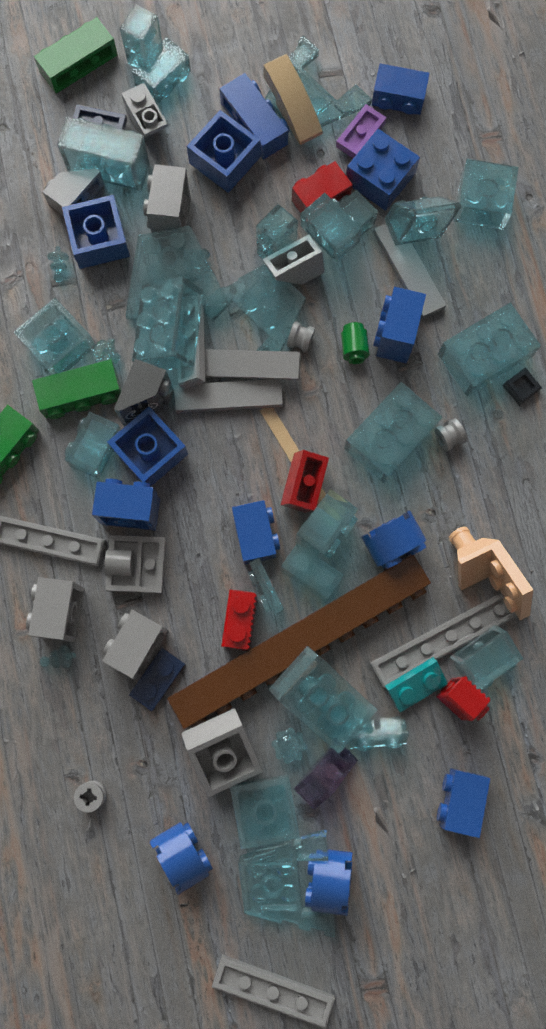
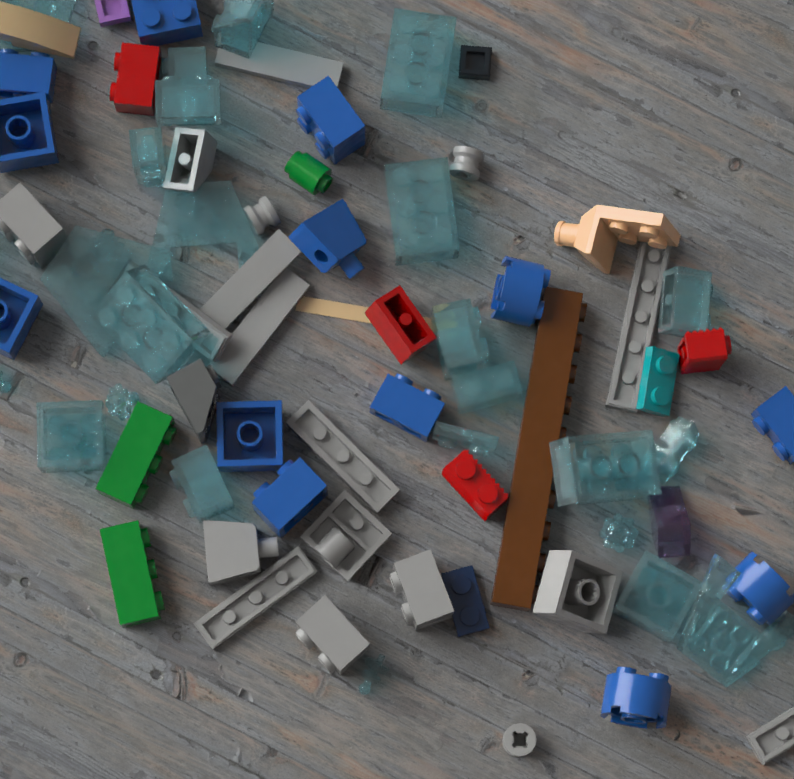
camera: 55 degrees left, 0 degrees up
(65, 501) = (235, 550): none -> light grey torso
(186, 519) = (342, 456): none -> light grey plate
(322, 390) = (331, 239): none -> blue torso

